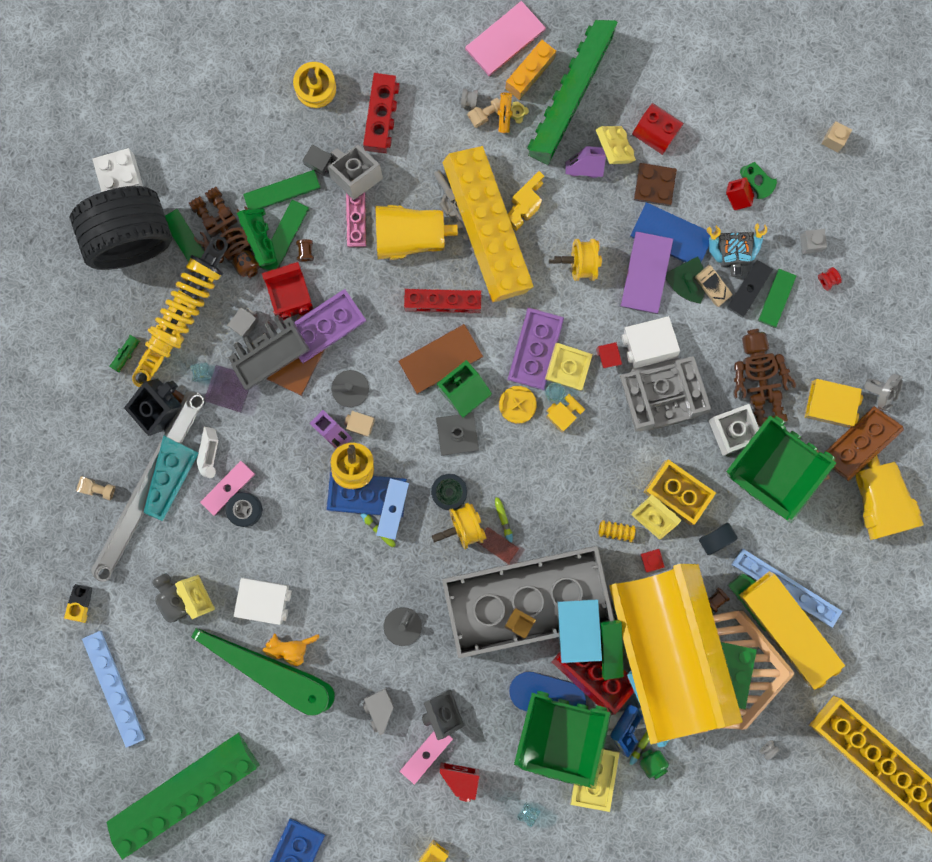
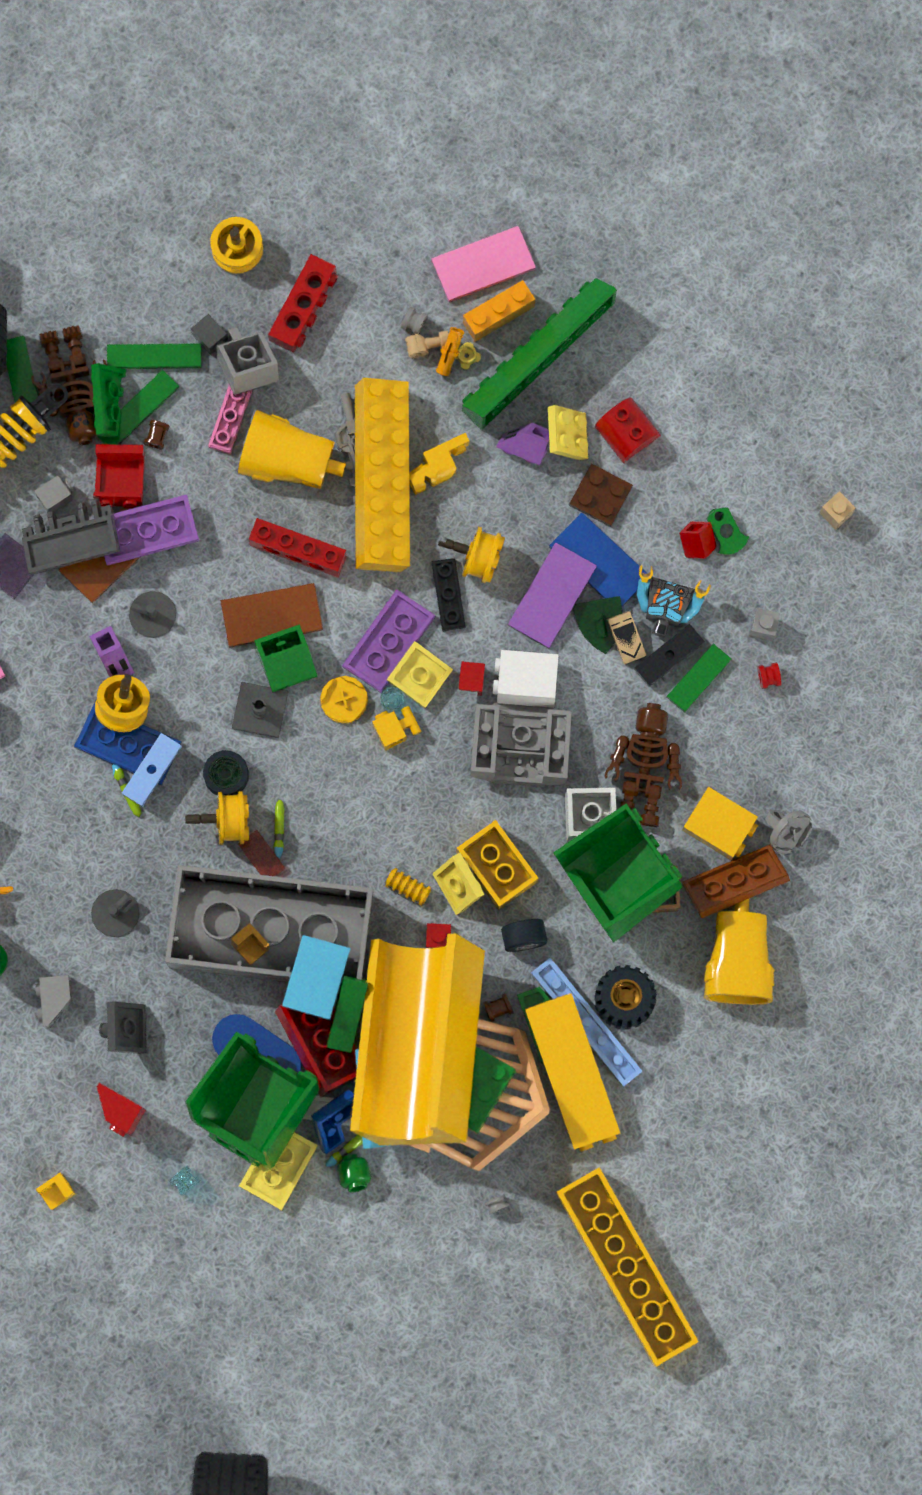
camera: 20 degrees right, 5 degrees down
(359, 423) = (148, 658): tan brick -> none
(418, 764) = (75, 1077): bright pink tile -> none
(573, 309) = (449, 607): none -> black tile
(810, 559) = (625, 997): none -> black wheel

